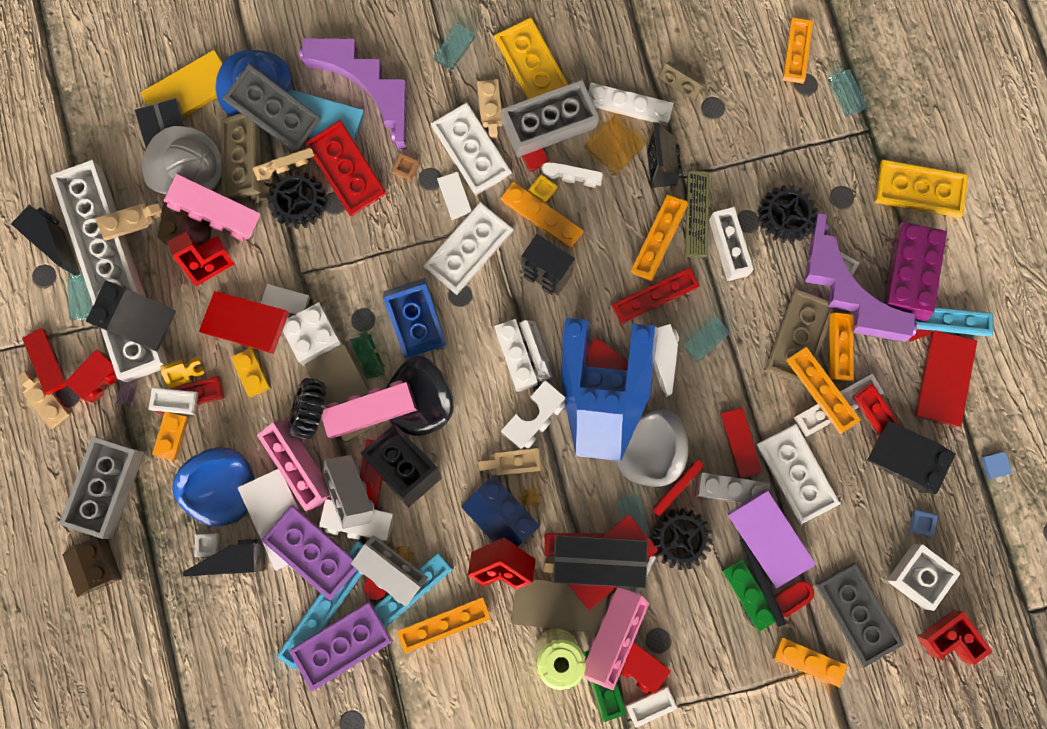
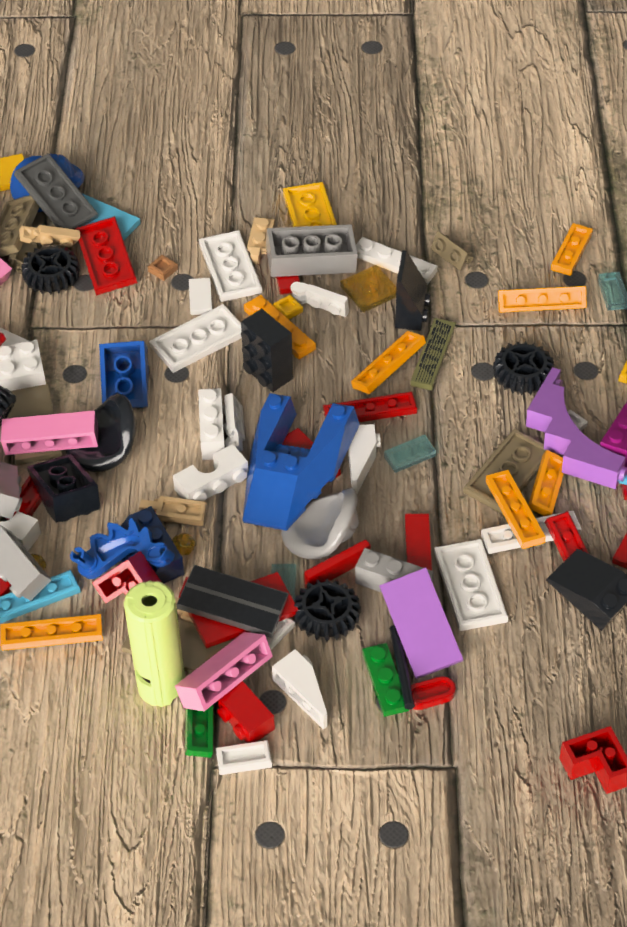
camera: 15 degrees right, 30 degrees down
(341, 58) = (138, 180): medium lavender arch -> none
(368, 359) = (66, 394): clear green hinge -> none
(454, 47) = (243, 191): clear light blue tile -> none
(474, 524) = (111, 549): none -> blue animal
(679, 620) = (297, 679): none -> white slope
(730, 244) = (457, 377): white brick -> none
(784, 123) = (542, 299): none -> light orange plate
(810, 662) = (432, 755): light orange plate -> none
(859, 614) = (500, 724): dark grey tile -> none
(923, 523) = (595, 656): medium blue tile -> none
(923, 576) = (577, 694): white brick -> none

